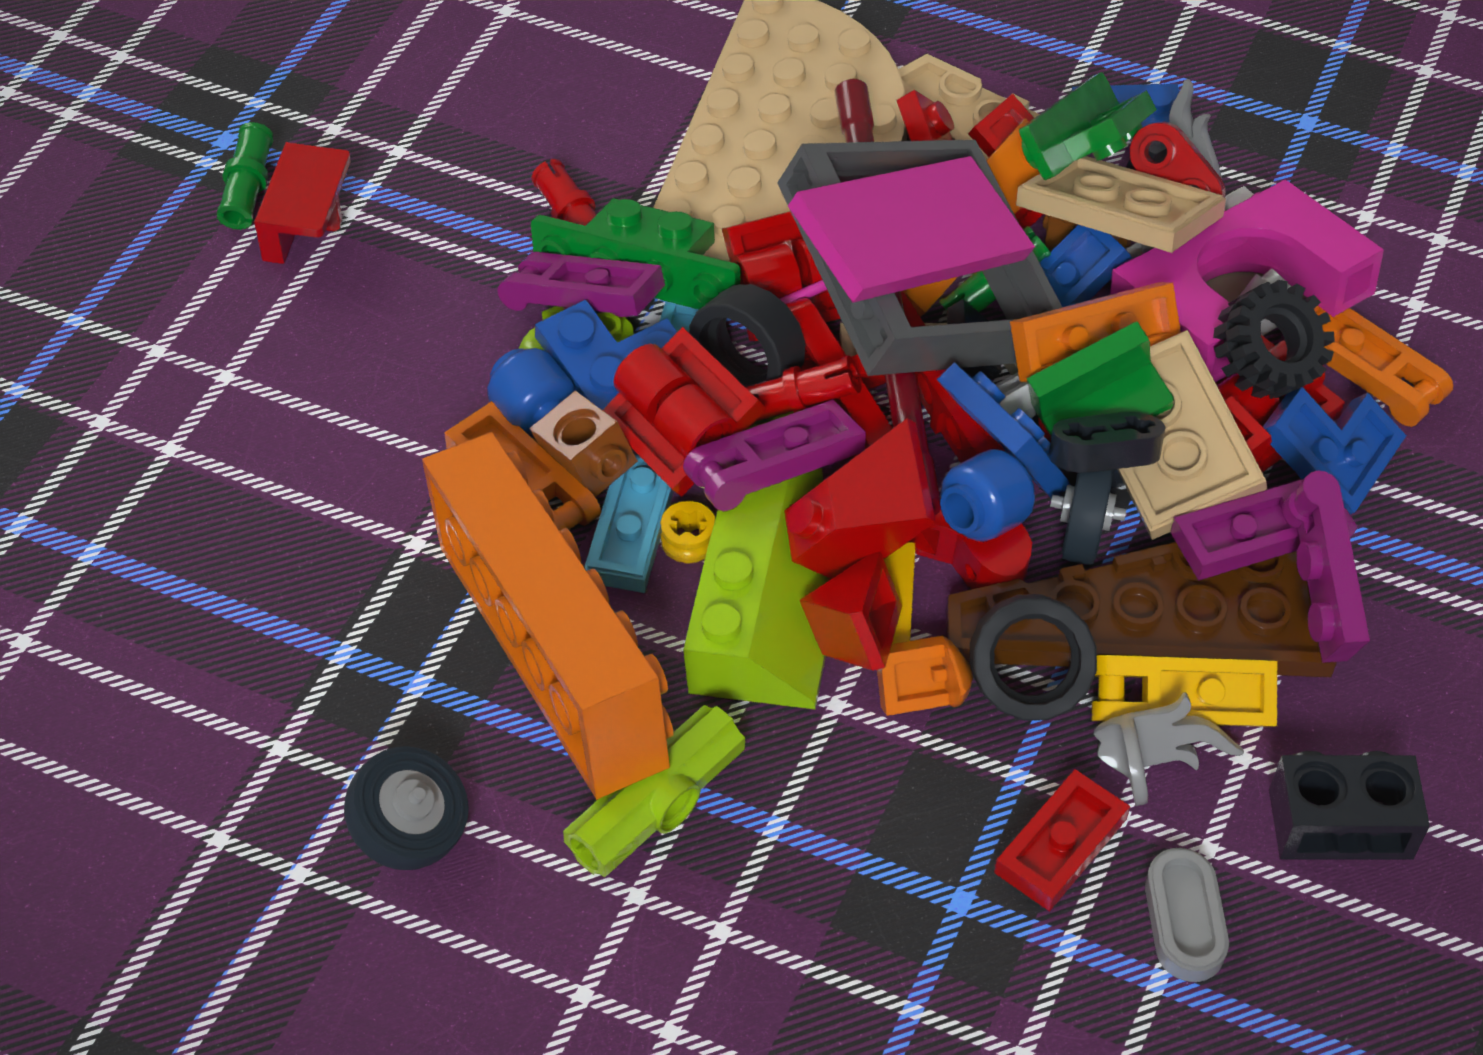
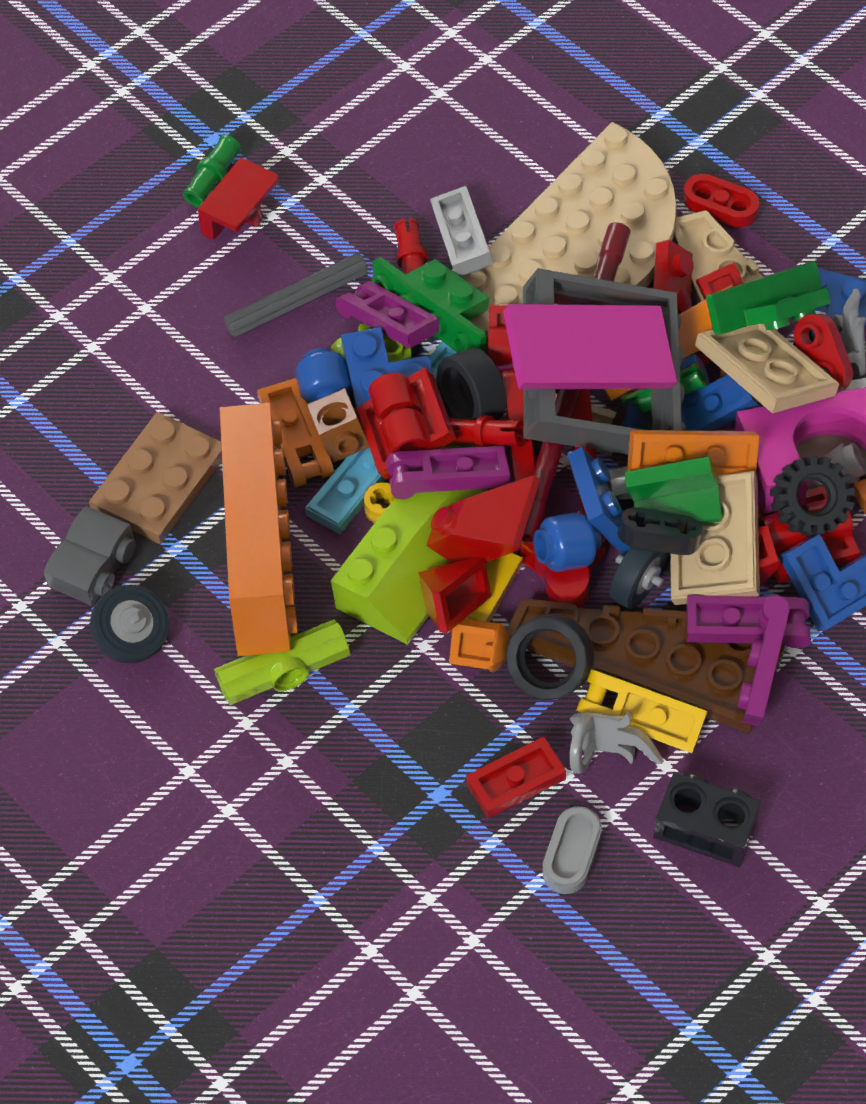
camera: 25 degrees right, 5 degrees up
(301, 731) = (89, 556): none -> dark grey brick
(349, 595) = (158, 477): none -> medium nougat plate
(434, 301) = (295, 295): none -> dark grey axle
(629, 158) = (461, 231): none -> light grey plate
(950, 38) = (722, 200): none -> red plate

